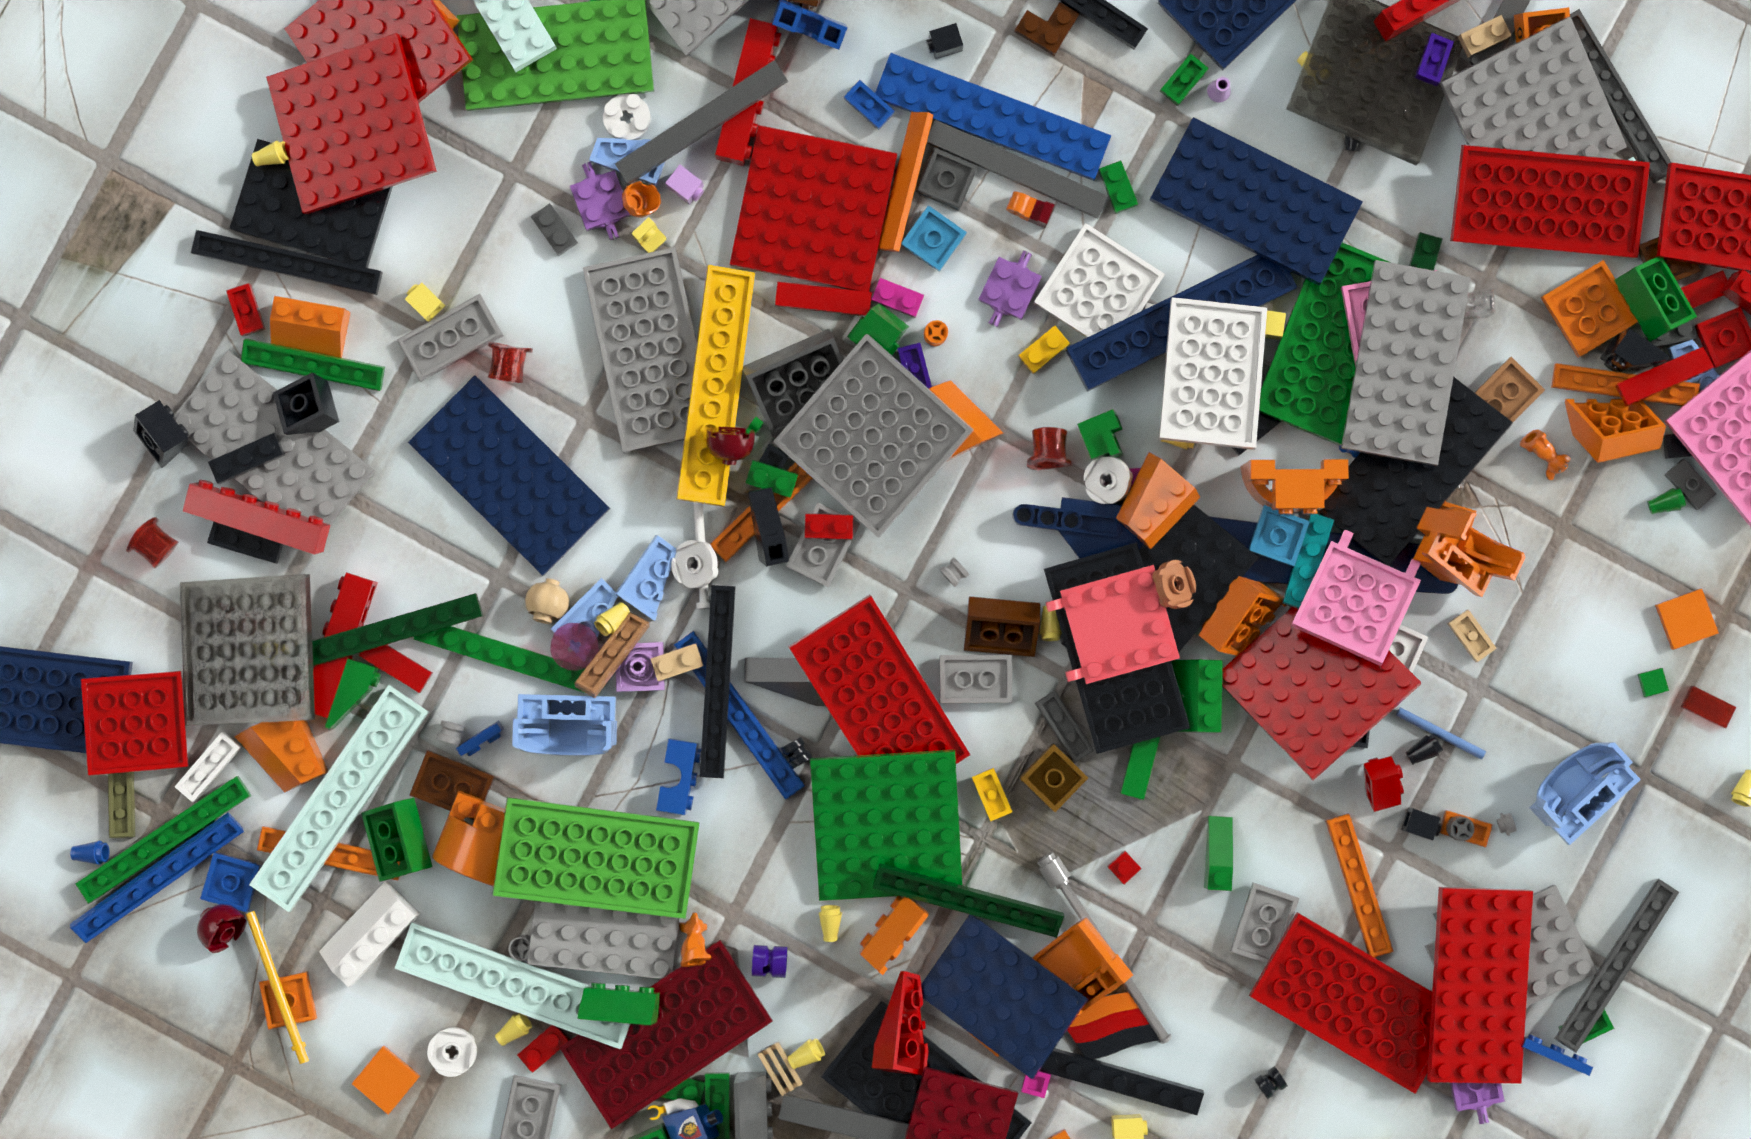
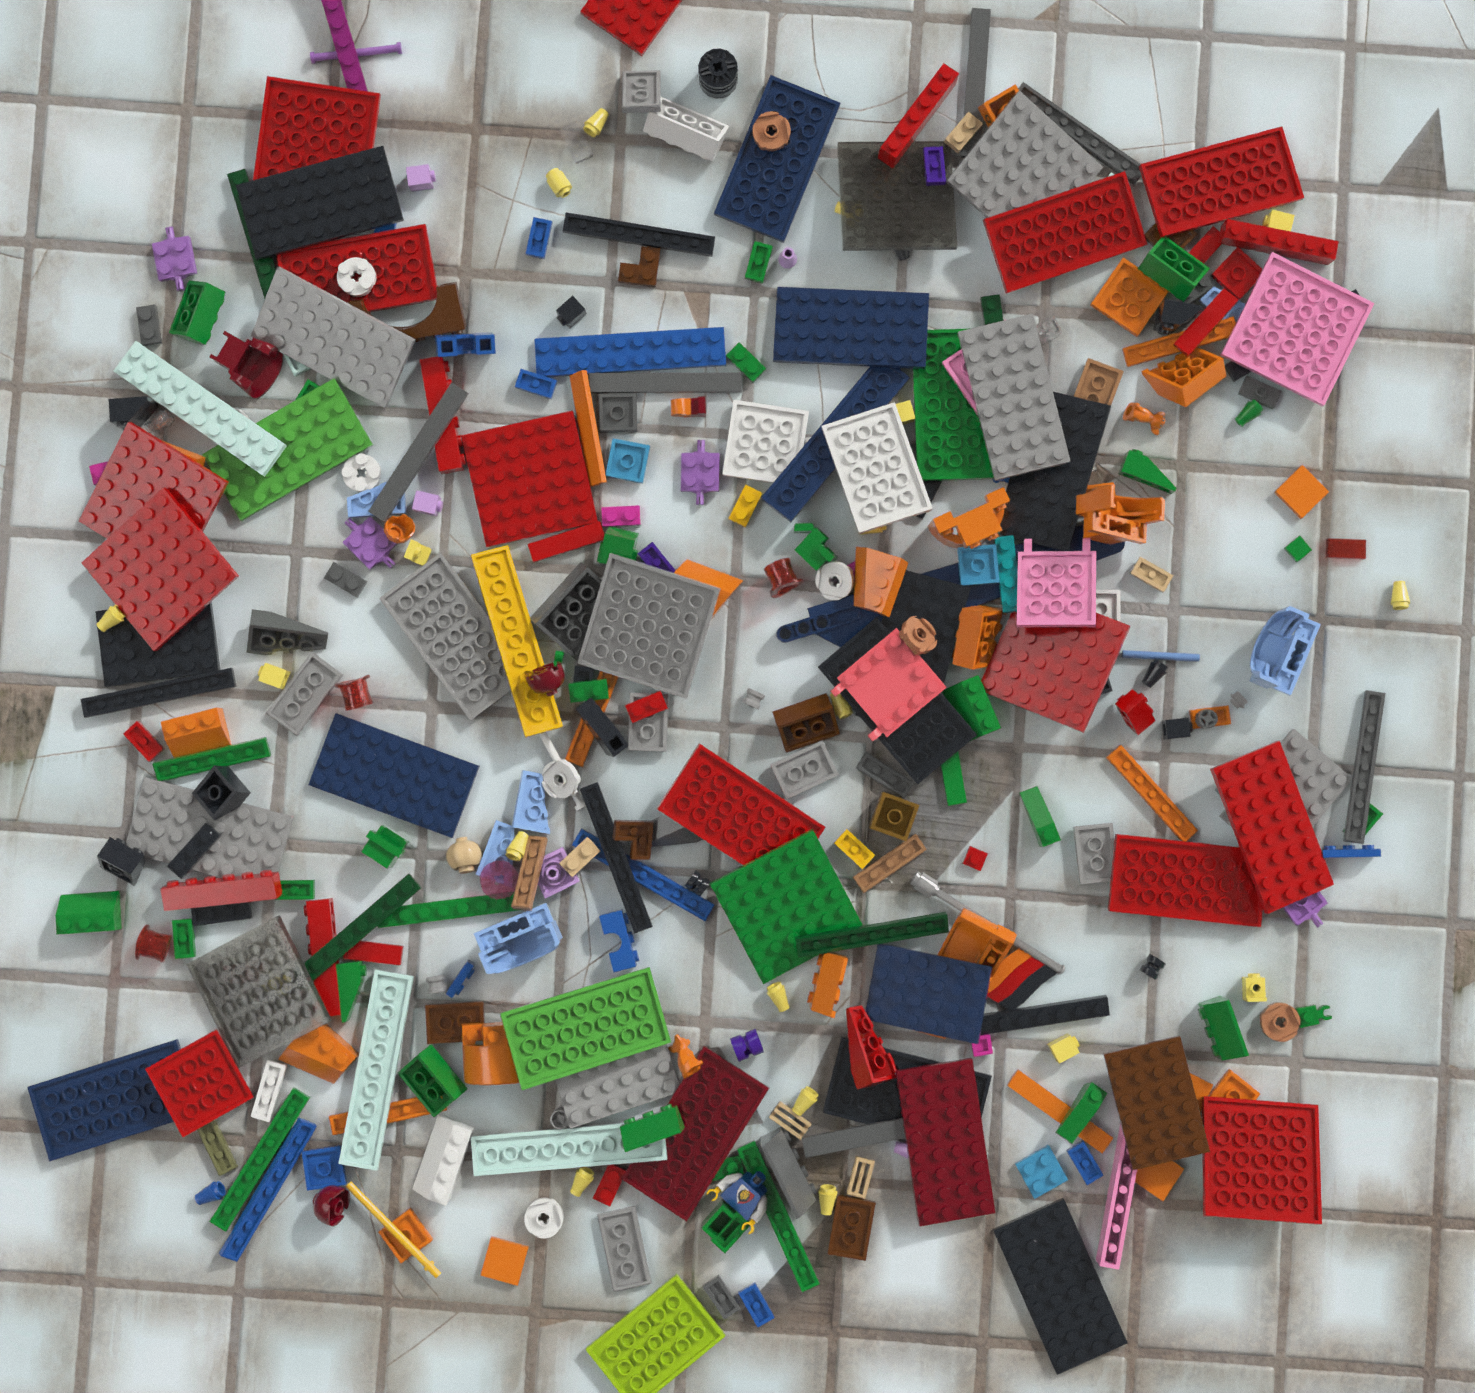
camera: 25 degrees left, 0 degrees up
(97, 474) = (88, 912): none -> green slope
(190, 552) = (183, 938): none -> green plate
(342, 555) = (297, 890): none -> green plate
(450, 255) = (276, 633): none -> dark grey wedge
(462, 551) = (384, 846): none -> green plate
(755, 665) = (639, 834): none -> reddish brown plate
(939, 330) = (658, 527): orange wheel -> none
(1024, 829) = (889, 863): none -> medium nougat tile
(1098, 404) = (803, 527): none -> green tile
(1515, 511) = (1143, 470): none -> green slope

